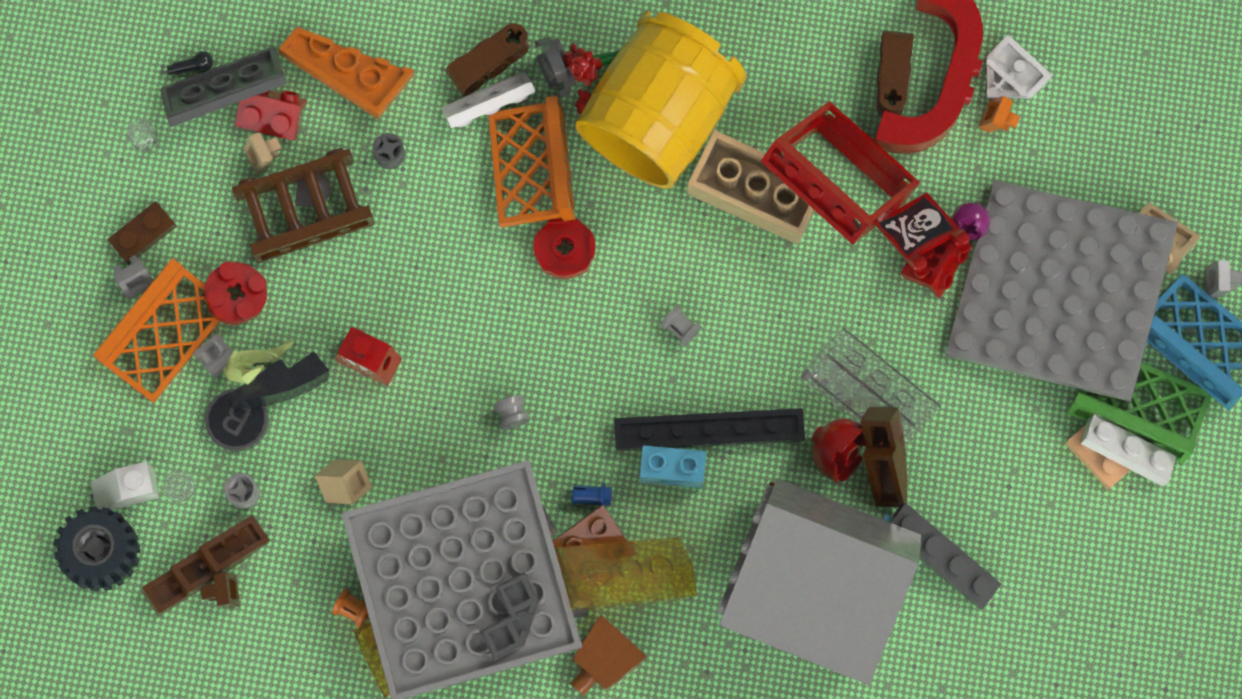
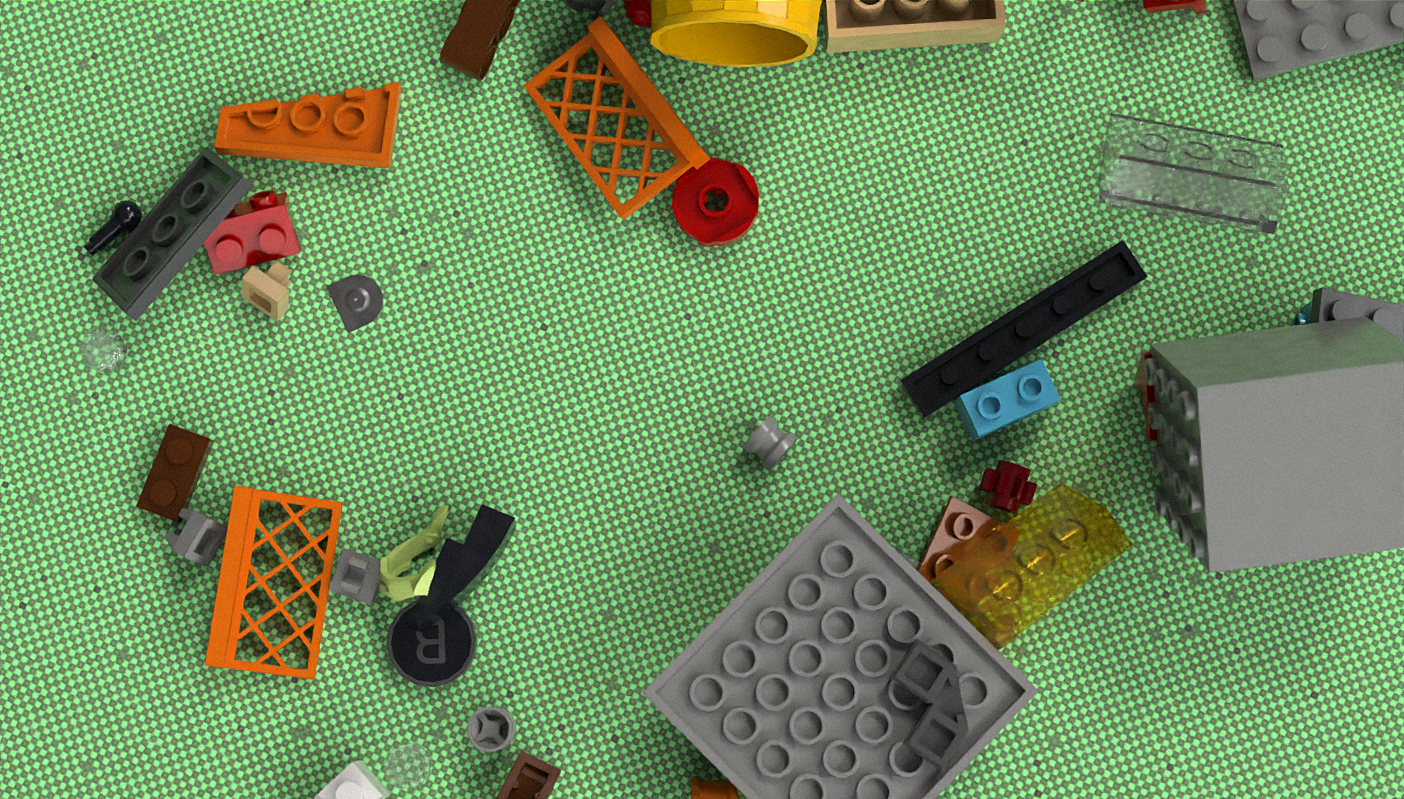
camera: 25 degrees left, 5 degrees up
(231, 276) = (321, 504): red plate -> none
(297, 235) = (373, 369): reddish brown fence -> none
(343, 481) = (611, 645): tan panel -> none
(368, 356) = (551, 472): red torso -> none
(387, 144) = (420, 194): dark grey wheel -> none
(488, 100) = (515, 69): white plate -> none
(592, 495) = (927, 490): blue pin -> none
(605, 658) = (1067, 682): dark orange torso -> none
(642, 520) = (1007, 486): none -> dark red gear
(680, 326) = (915, 221): light grey bush -> none
(838, 448) = (1194, 264): red cylinder -> none
(885, 455) = (1261, 242): reddish brown slope -> none

